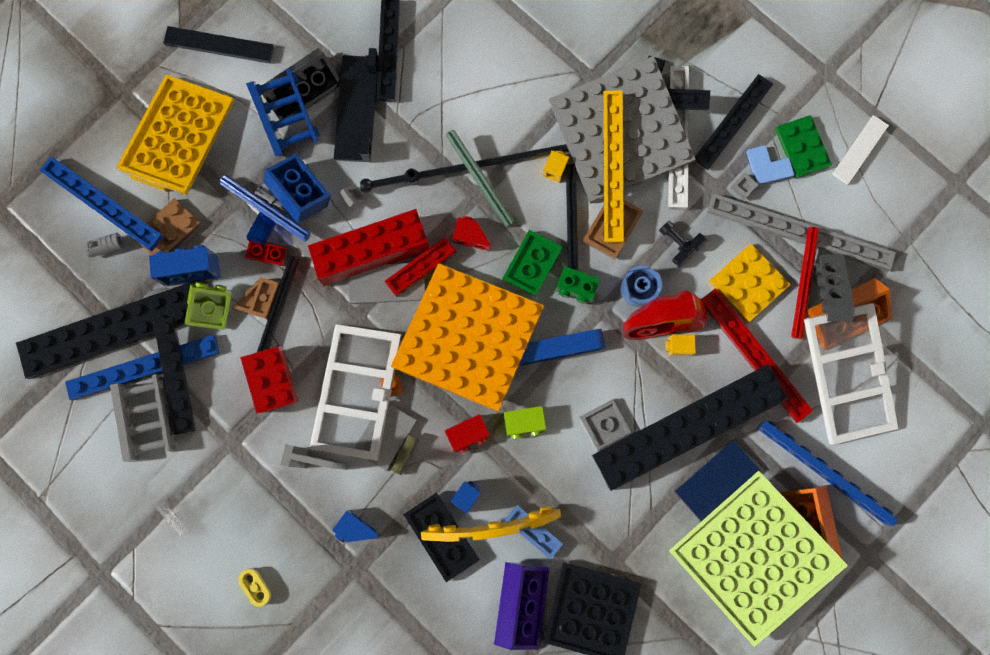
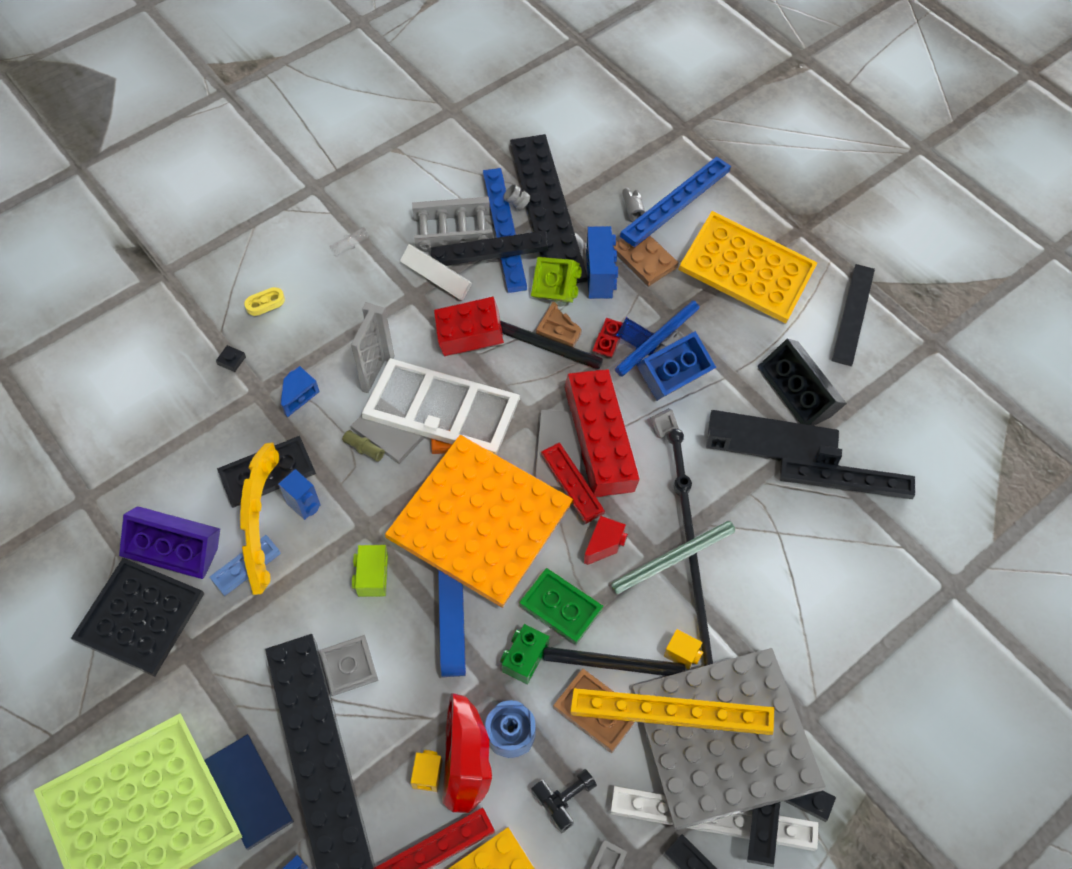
camera: 95 degrees right, 20 degrees down
(106, 357) = (516, 196): none -> light grey wheel
(204, 424) = (436, 272): none -> white tile
(264, 109) = (751, 344): blue fence -> none
(323, 604) = (231, 358): none -> black plate
(467, 434) = (371, 509): red brick -> none

